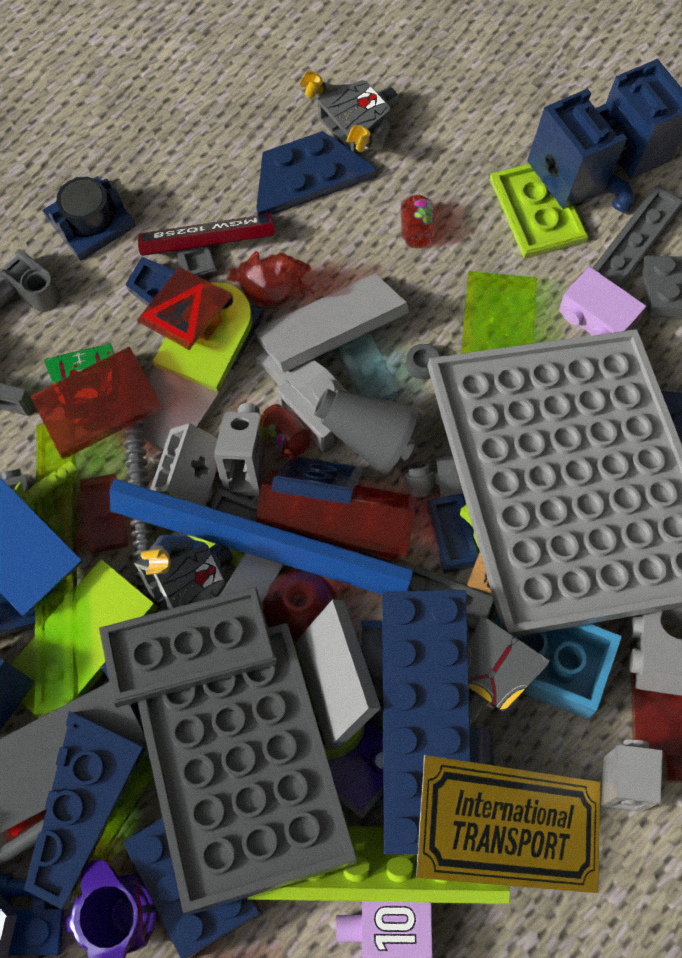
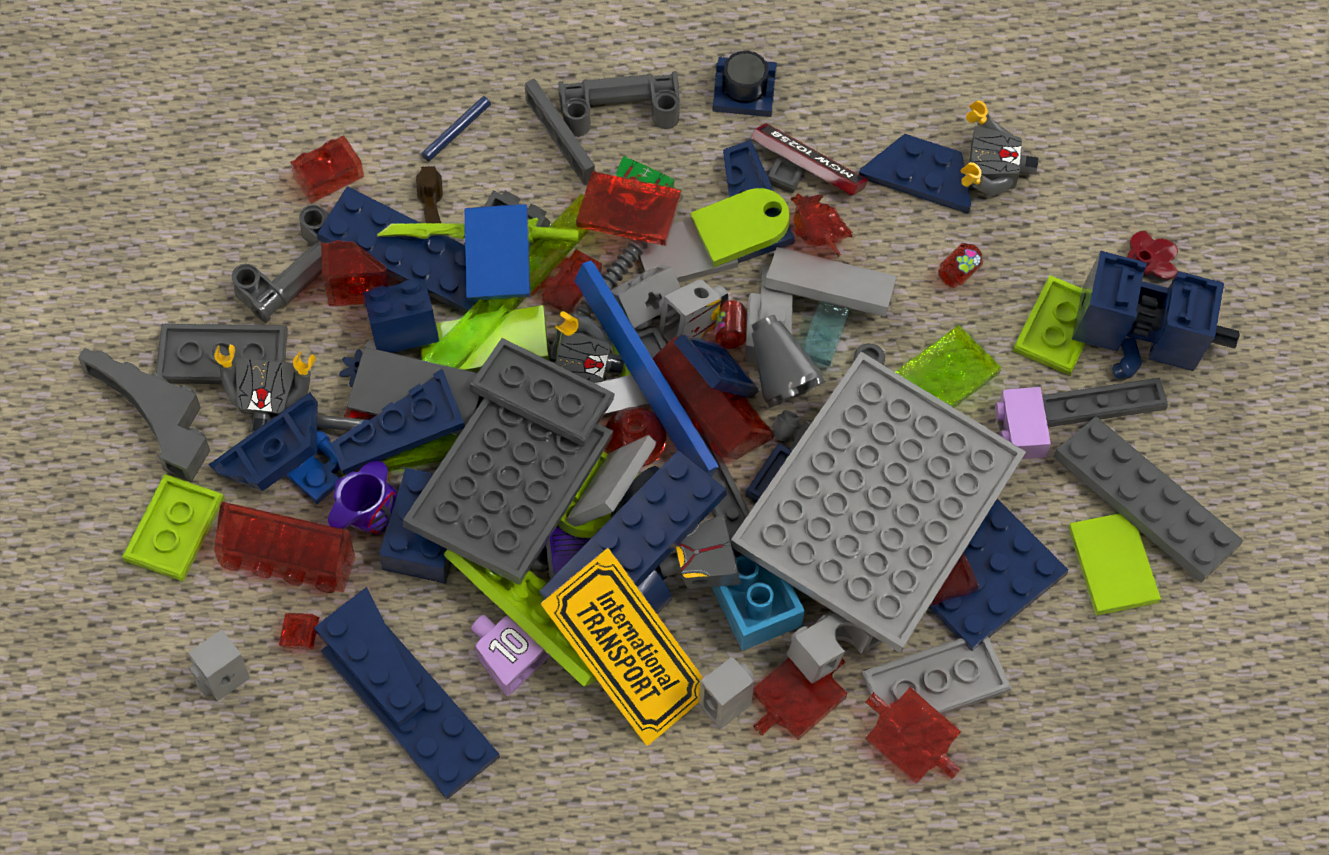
camera: 40 degrees right, 5 degrees down
(185, 309) = (740, 195): clear red piece -> none
(547, 91) = (1156, 253): none -> dark red plate

